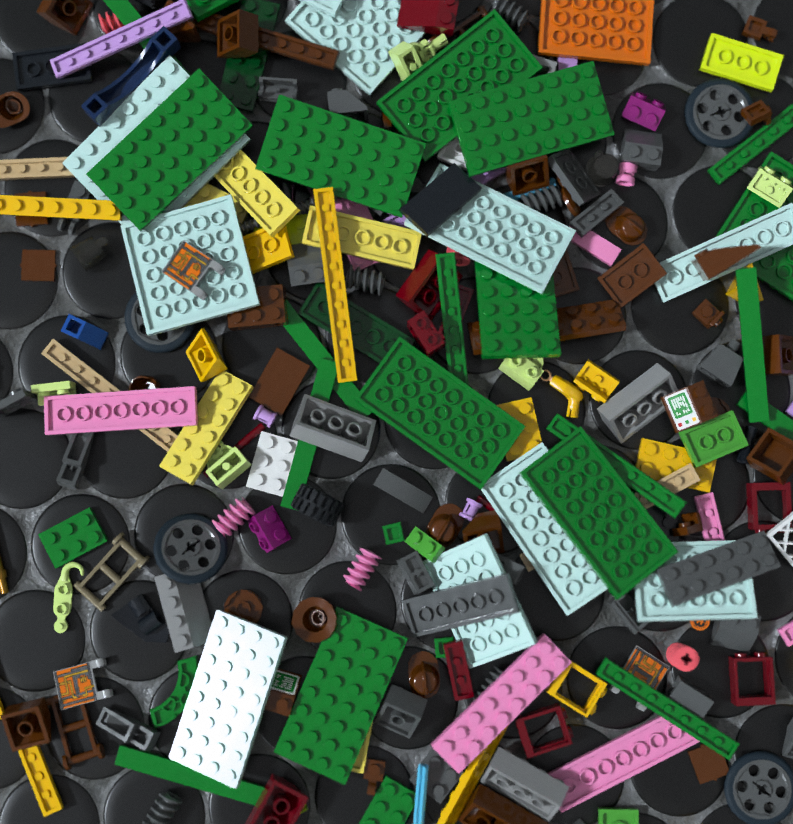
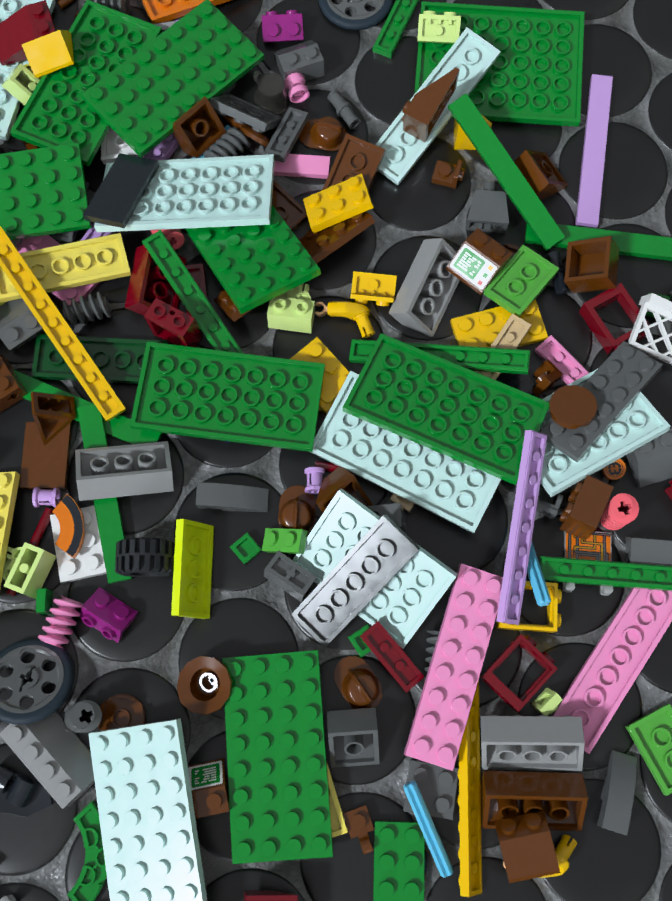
camera: 25 degrees left, 10 degrees down
(218, 595) = (91, 721): none -> dark grey piece
(227, 495) = (44, 601): none -> green tile
(274, 449) = (71, 526): none -> tile
(300, 354) = (52, 413): none -> reddish brown slope
(347, 531) = (192, 569): none -> neon yellow plate
(361, 568) = (229, 602): bright pink piece -> none
(441, 47) = (49, 52): none -> yellow slope
(551, 761) = (546, 702): none -> yellowish green plate
(596, 659) = (537, 579): none -> medium azure axle
(603, 632) = (521, 527): none -> lavender tile
(605, 298) = (337, 203): none -> yellow plate
(654, 213) = (344, 109): none -> dark grey pin
(659, 641) = (585, 507): none -> reddish brown brick
(692, 564) = (573, 406): none -> reddish brown tile

